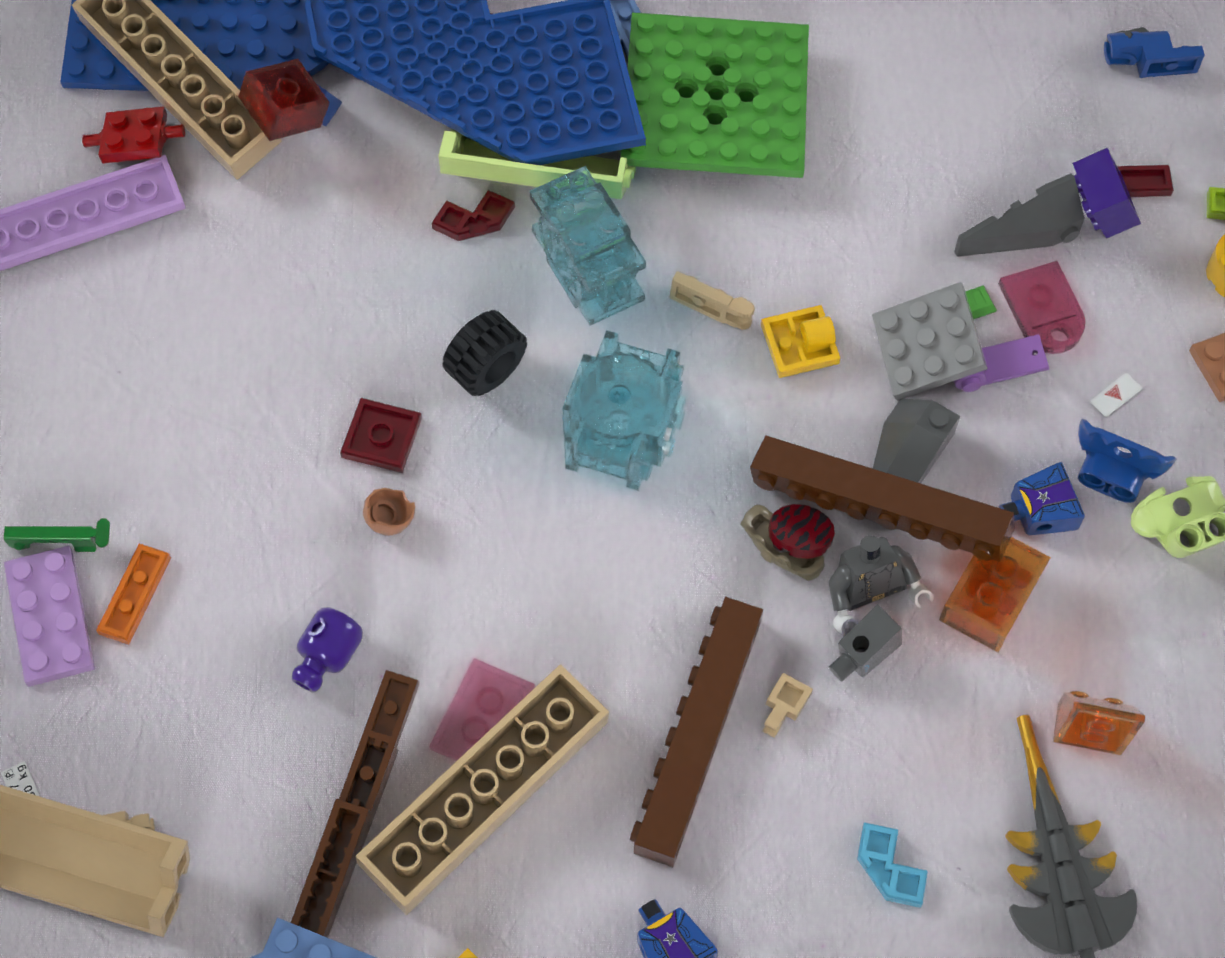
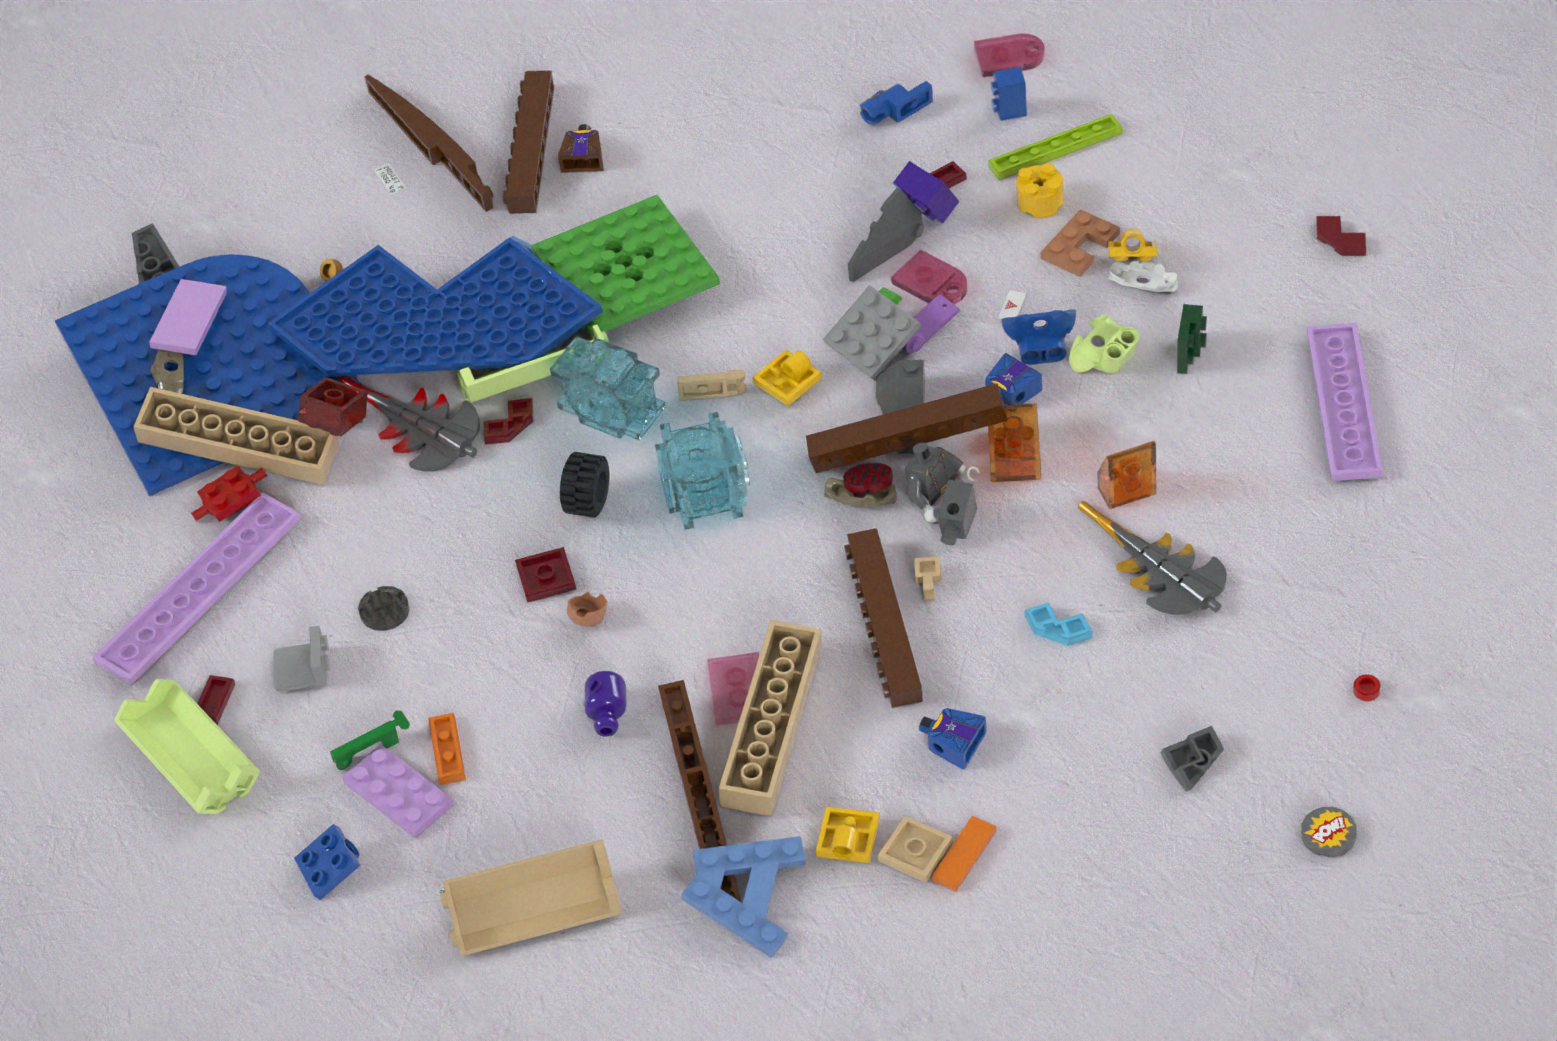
camera: 25 degrees left, 15 degrees down
(61, 392) = (302, 664): none -> light grey bracket
(191, 372) = (383, 608): none -> clear smoke tile
(393, 197) = (443, 438): none -> dark grey animal

